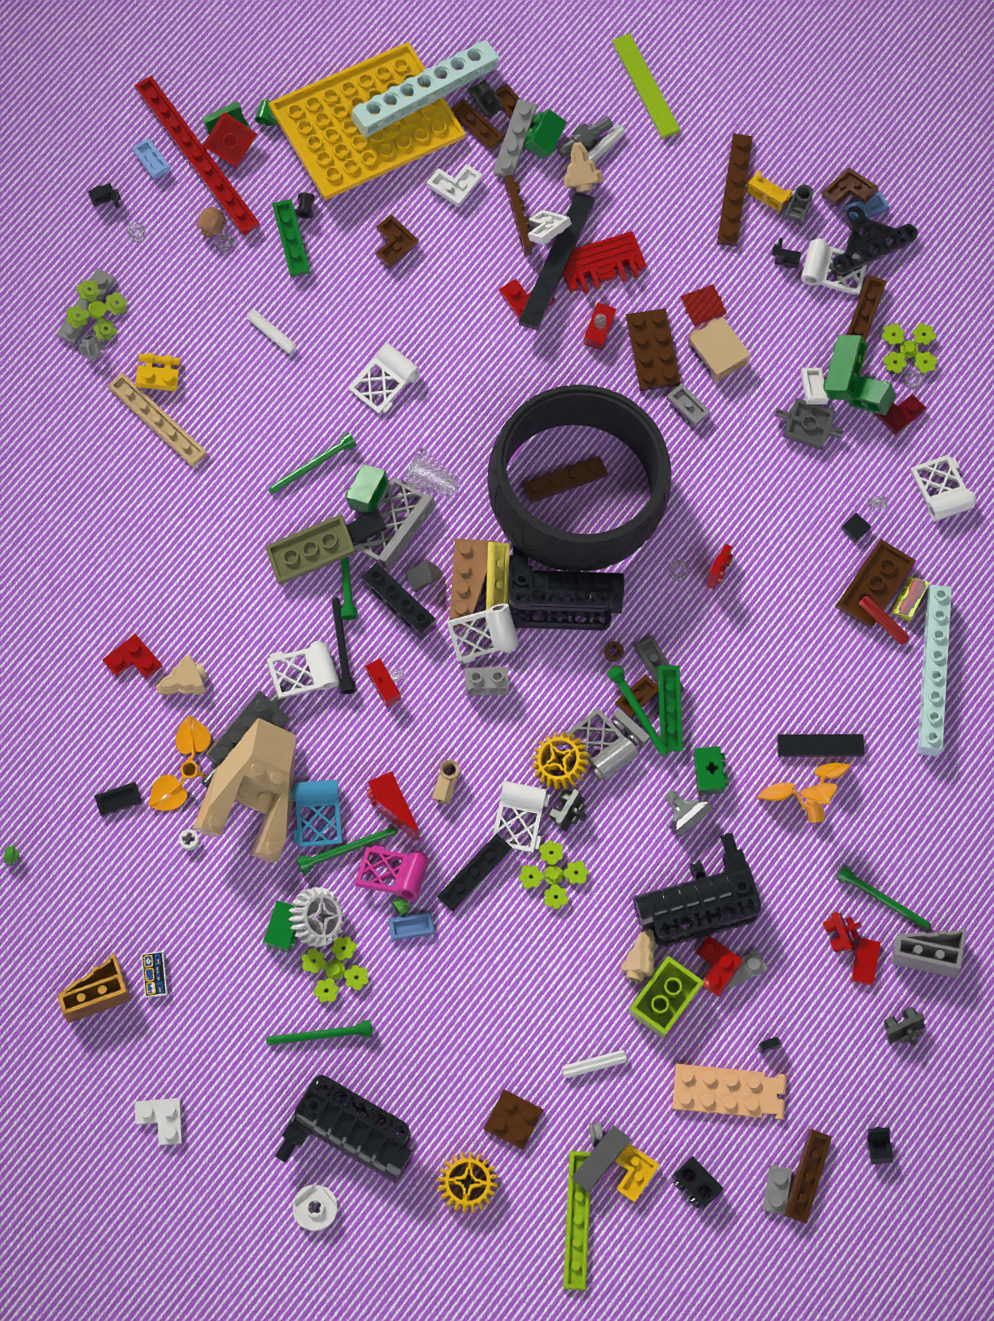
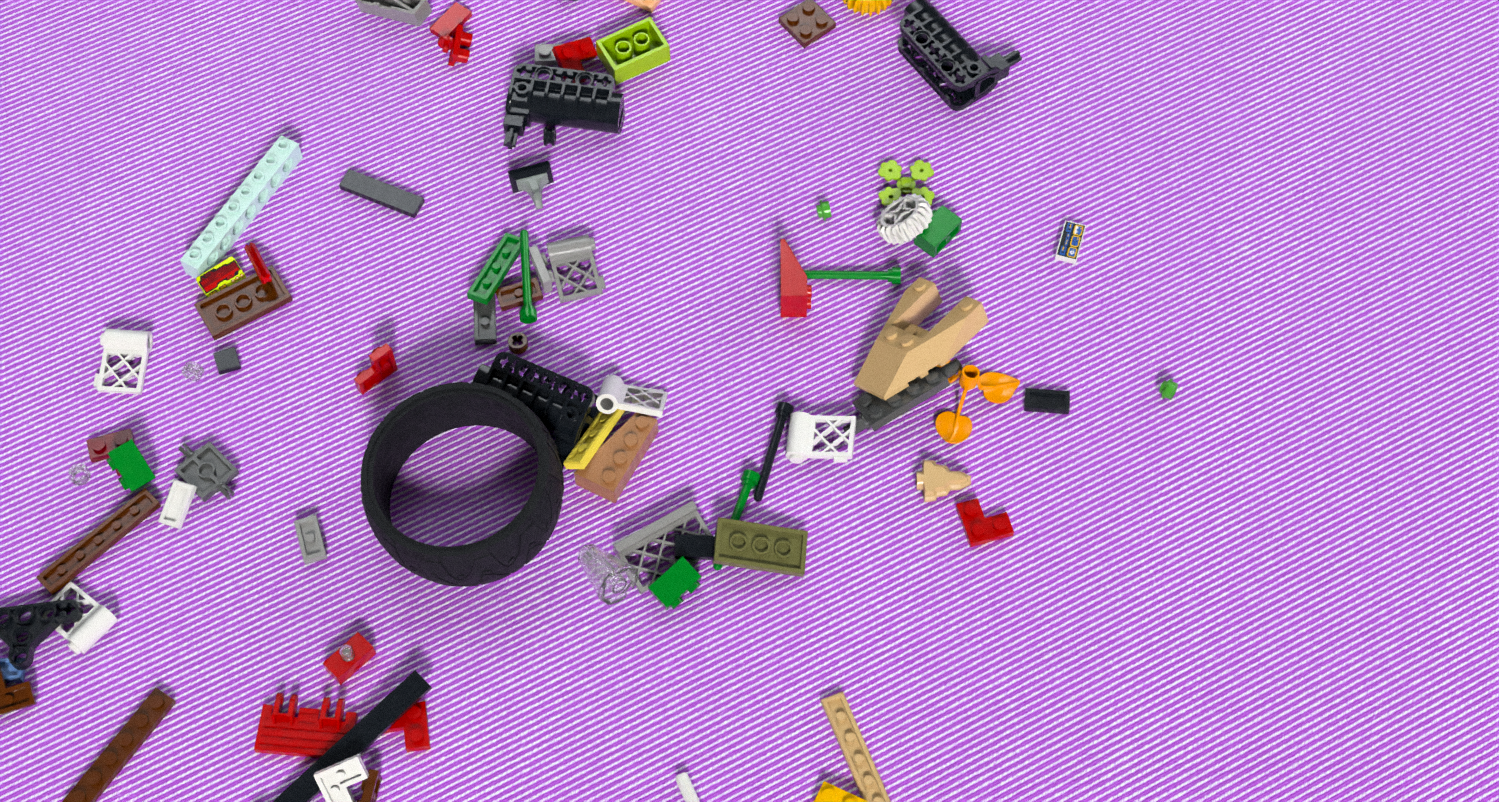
camera: 155 degrees left, 10 degrees down
(95, 992) = (1130, 240): pearl gold wedge -> none
(165, 1113) = (1104, 136): white plate -> none
(193, 844) = (990, 333): white bush -> none
(312, 795) = (858, 325): dark azure piece -> none
(328, 1208) = (999, 30): white plate -> none
(347, 442) = (673, 647): green piece -> none
(362, 1029) = (902, 129): green piece -> none
(385, 682) = (746, 399): red piece -> none
(396, 366) = (581, 703): white piece -> none
(399, 601) = (697, 465): black brick -> none
(409, 877) = (803, 226): dark pink piece -> none
(411, 926) = (815, 191): medium blue tile -> none
(423, 575) = (661, 480): dark grey tile -> none
(446, 784) = (732, 290): tan piece -> none
(474, 872) = (744, 210): black tile -> none
(486, 681) = (650, 359): light grey brick -> none
(525, 799) = (672, 249): white piece -> none
(553, 762) = (609, 268): yellow gear -> none
(553, 874) = (676, 183): lime plant -> none
(565, 479) = (470, 517): reddish brown plate -> none
(572, 810) = (627, 230): pearl dark grey hips -> none
(594, 1064) = (719, 34): white axle -> none
(641, 958) = (639, 83): tan rock -> none
(652, 349) = (310, 614): reddish brown plate -> none
(678, 577) = (411, 384): clear bush -> none
(703, 305) = (231, 640): clear red piece -> none
(707, 782) = (491, 207): green brick -> none
(719, 348) = (245, 581): tan panel -> none
(768, 192) = (85, 729): yellow hinge -> none
(785, 257) = (117, 646): black bracket -> none
(798, 207) = (67, 697): dark grey piece -> none
(815, 795) = (413, 118): light orange plant -> none
(845, 367) = (138, 496): brick -> none
(847, 876) = (425, 85): green piece -> none
(909, 348) = (61, 505): lime plant -> none

